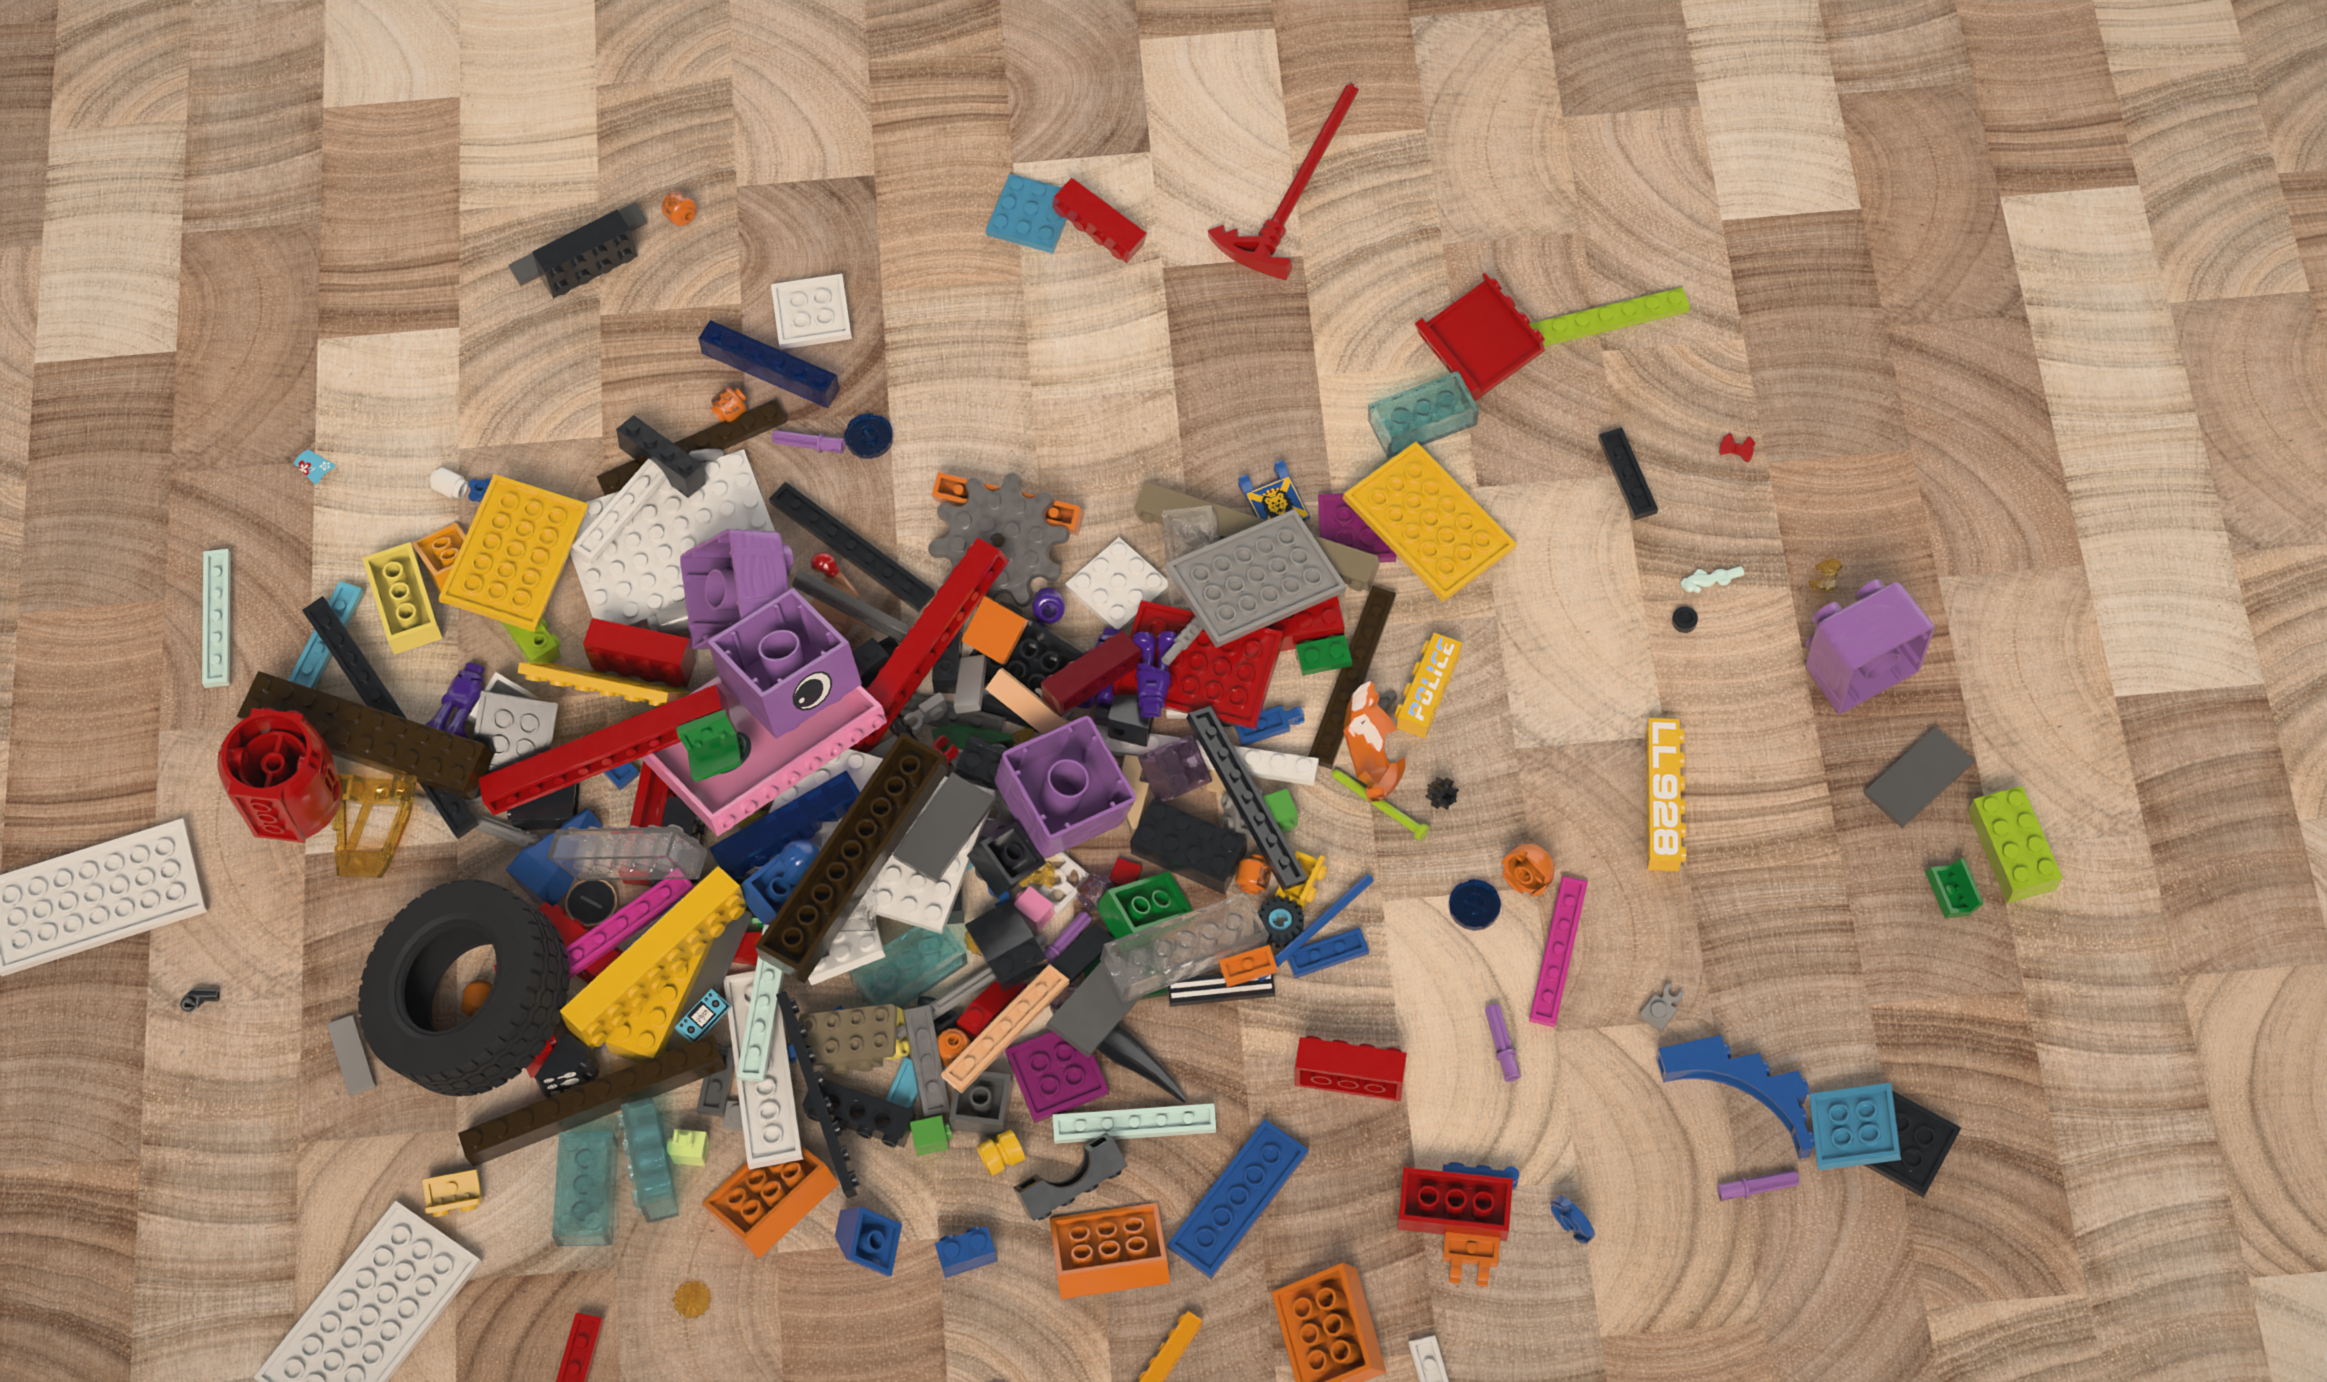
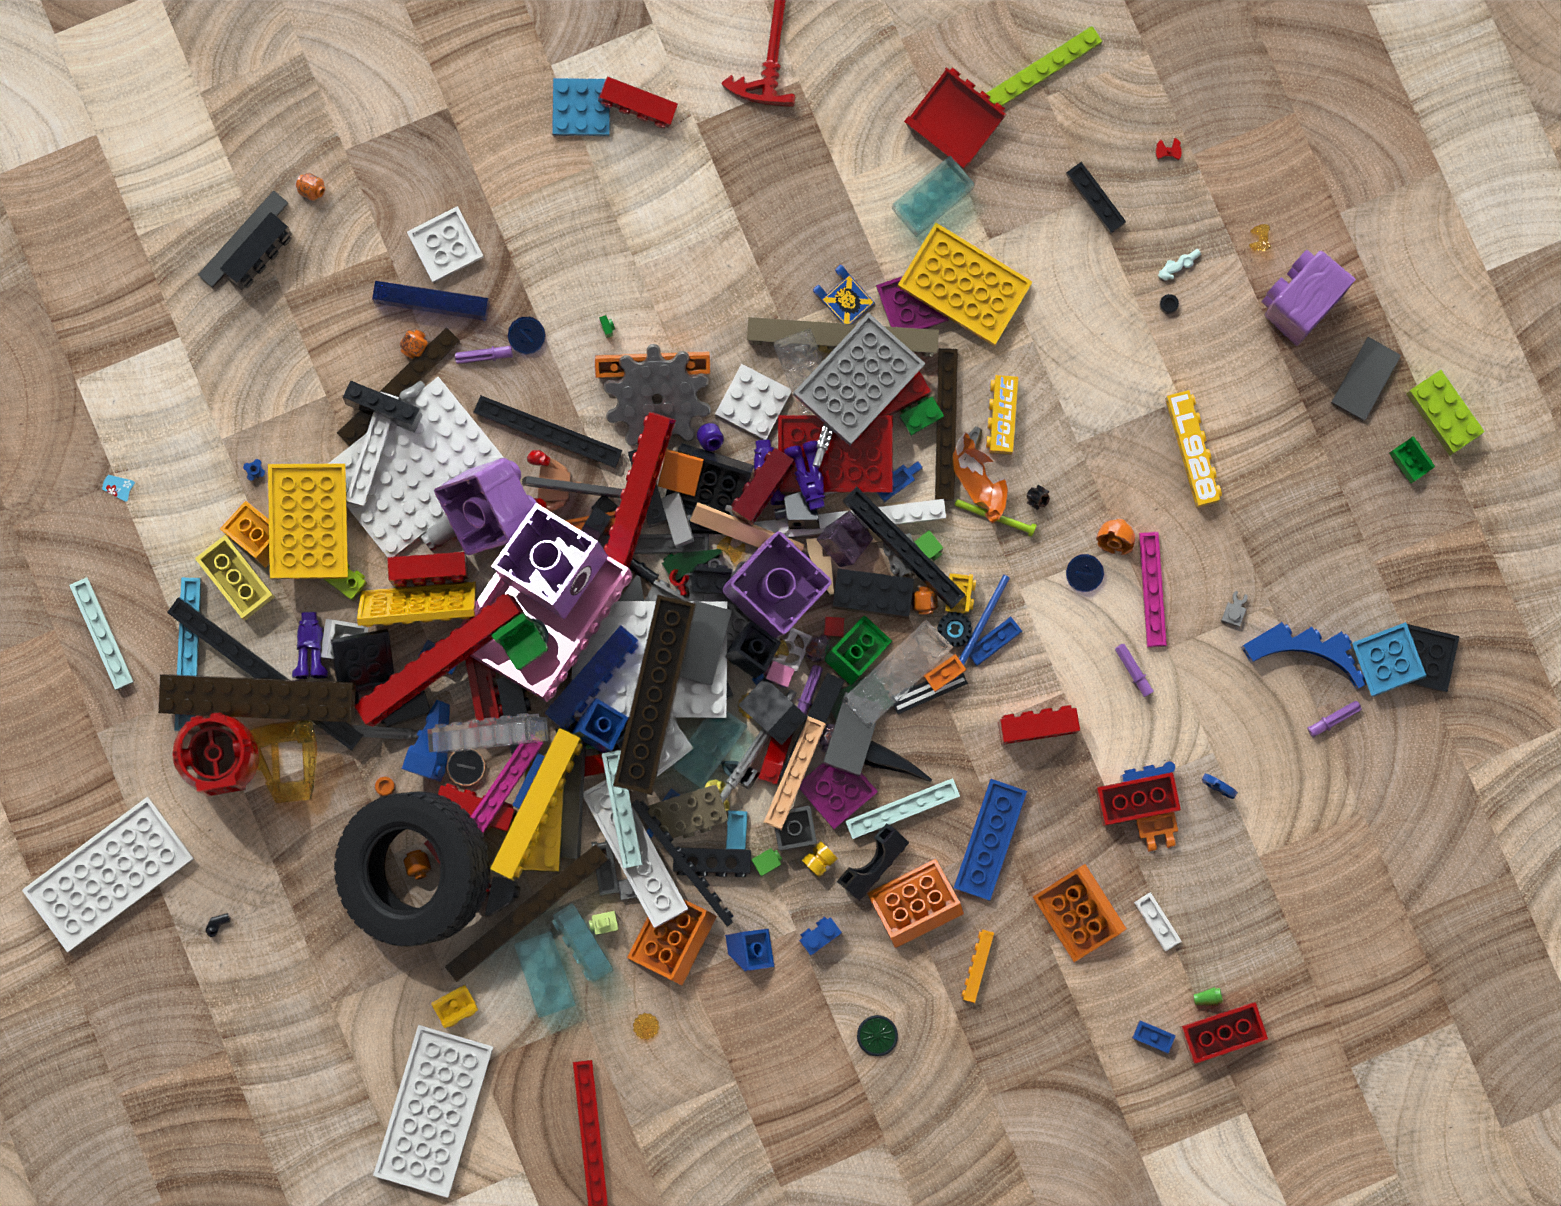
camera: 25 degrees left, 20 degrees up
(351, 1055) = (342, 930): light grey tile -> none
(448, 483) = (228, 472): white brick -> none
(702, 1017) = (580, 830): tile -> none
(797, 858) = (613, 701): blue hair -> none
(926, 1060) = (746, 812): flat silver plate -> none
(929, 710) = (656, 547): light grey plate -> none
(951, 1045) = (757, 801): orange head -> none
(970, 449) = (607, 326): none -> green plate

